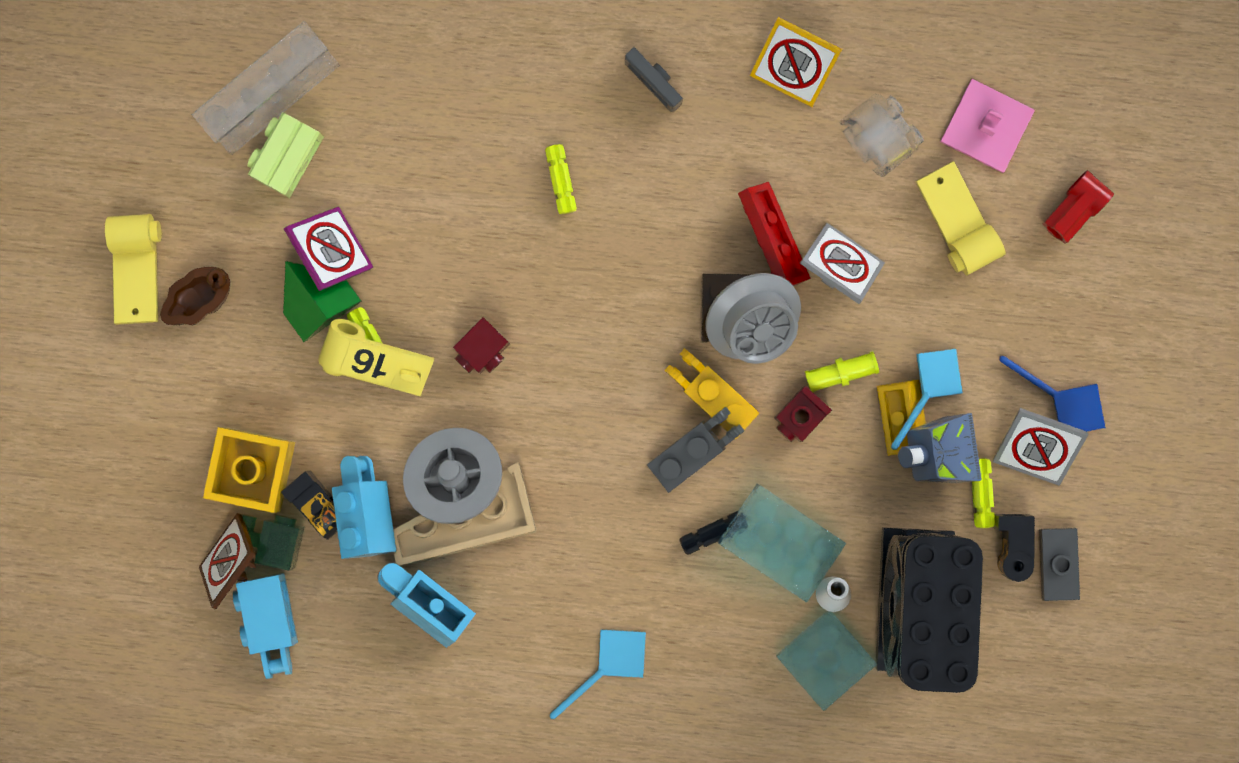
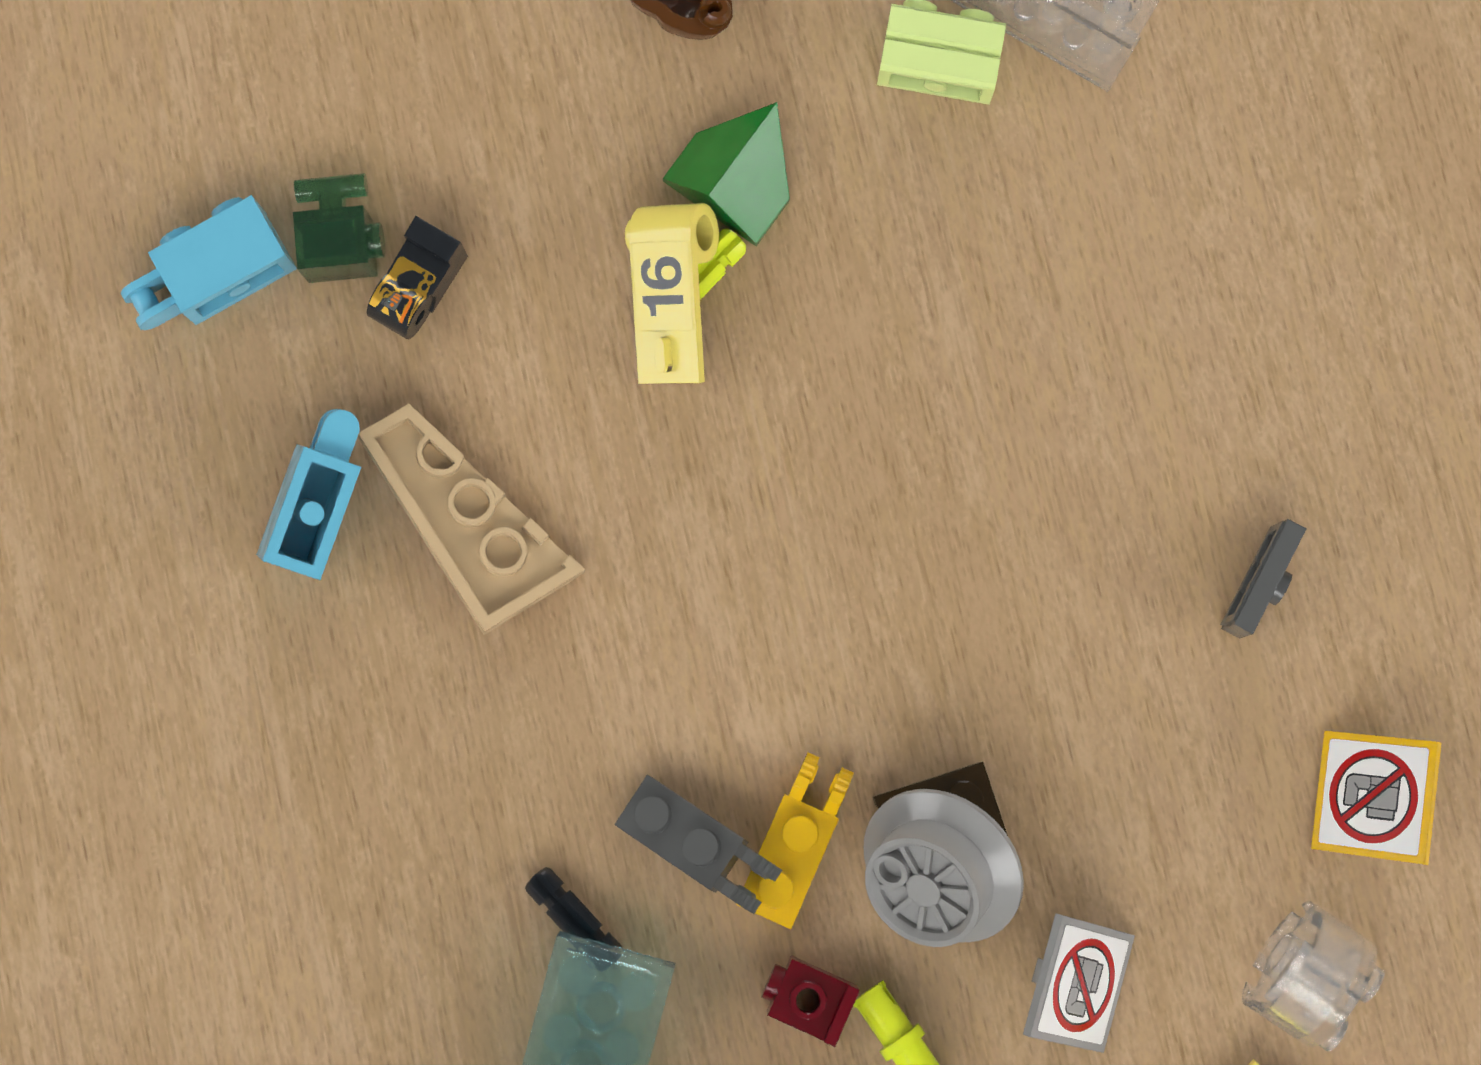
camera: 75 degrees right, 5 degrees down
(227, 561) = (281, 171): piece -> none
(249, 470) = (435, 157): yellow brick -> none
(328, 248) = (819, 163): piece -> none
(362, 511) = (427, 351): medium azure brick -> none
(452, 475) = (526, 471): light grey wheel -> none
(481, 348) = (745, 450): dark red brick -> none
(560, 179) = (1053, 486): neon yellow axle -> none
(619, 655) = (329, 833): medium azure piece -> none
(773, 233) = (1087, 854): red plate -> none

